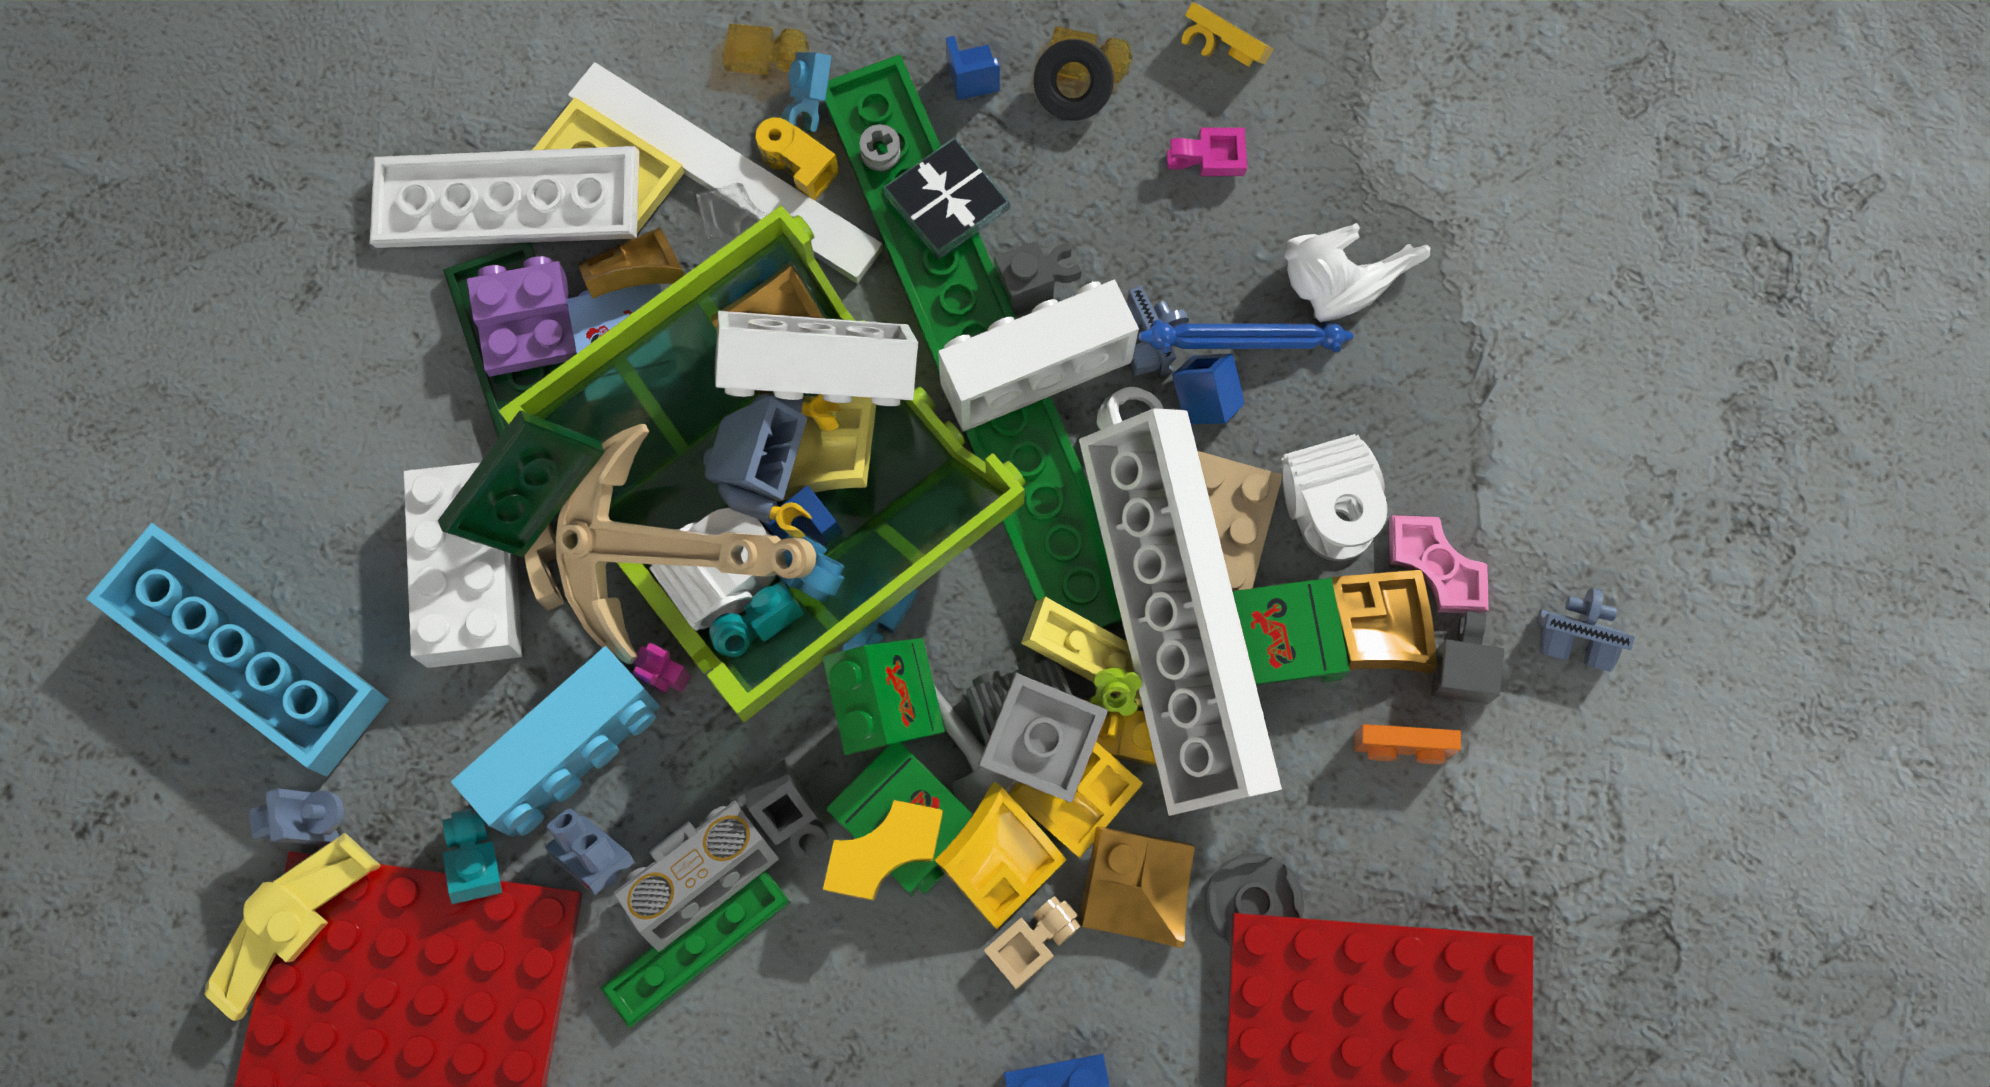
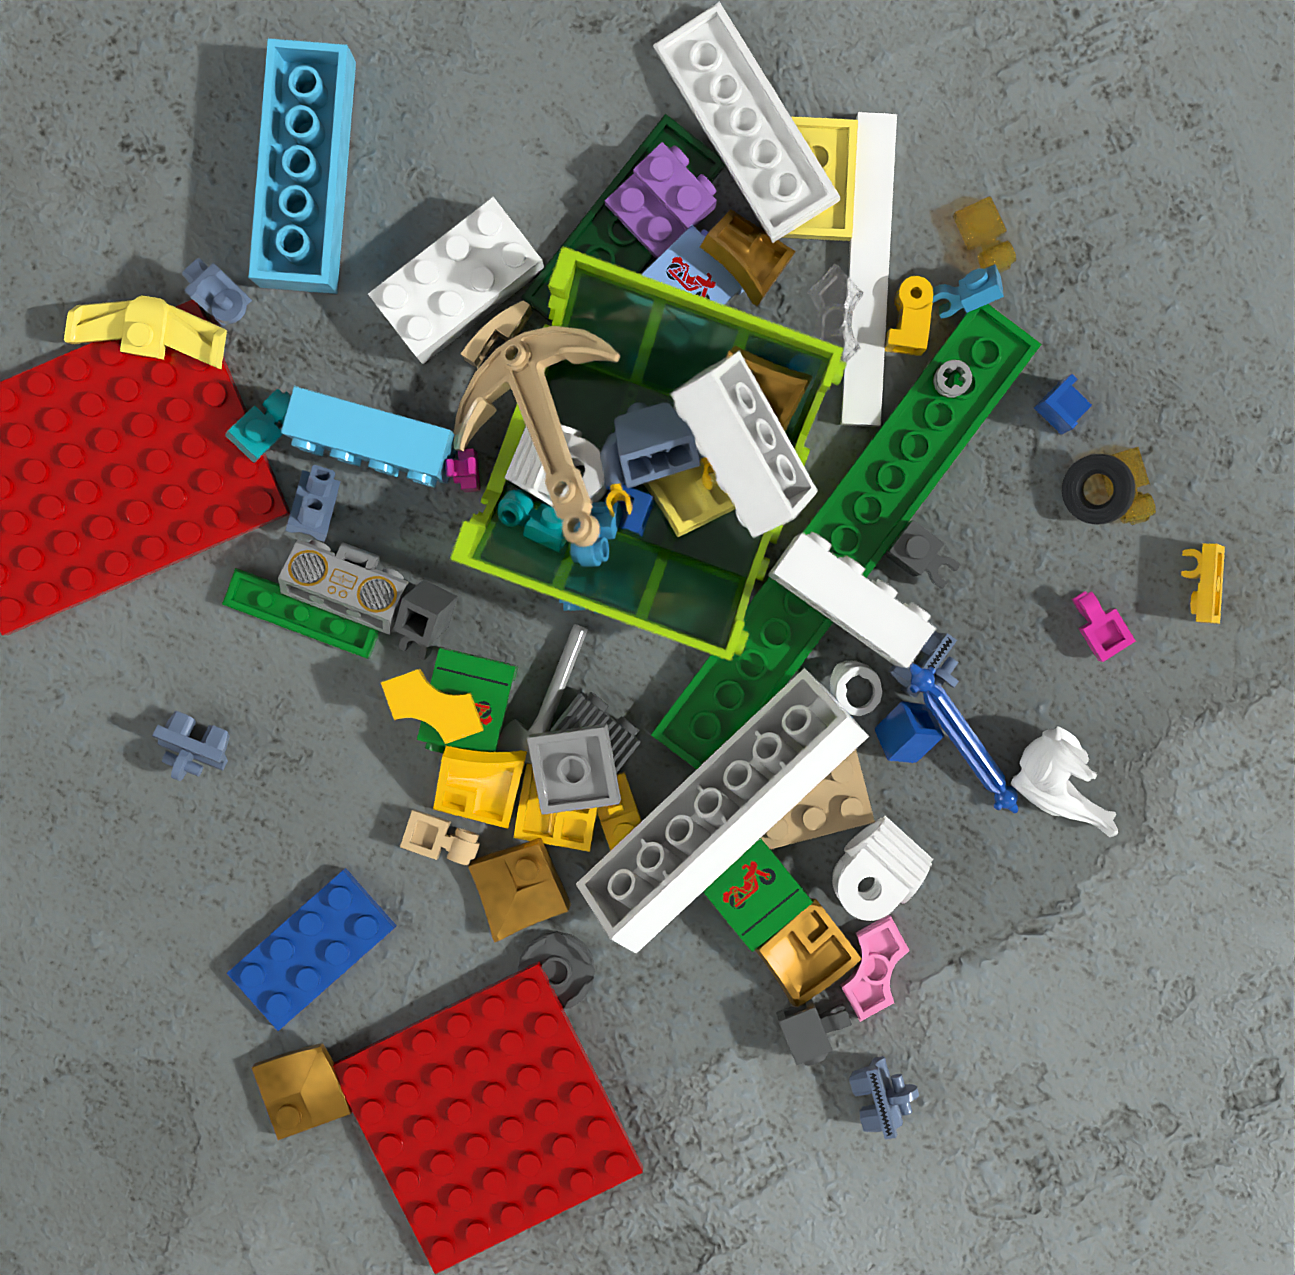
camera: 60 degrees right, 15 degrees up
(521, 484) = (523, 296): dark green tile -> none
(883, 694) = (535, 644): green panel -> none
(946, 198) = (942, 453): black tile -> none
(1075, 642) = (656, 756): light yellow plate -> none
(1116, 680) = (639, 799): lime plate -> none
(1428, 744) = (734, 1032): orange plate -> none

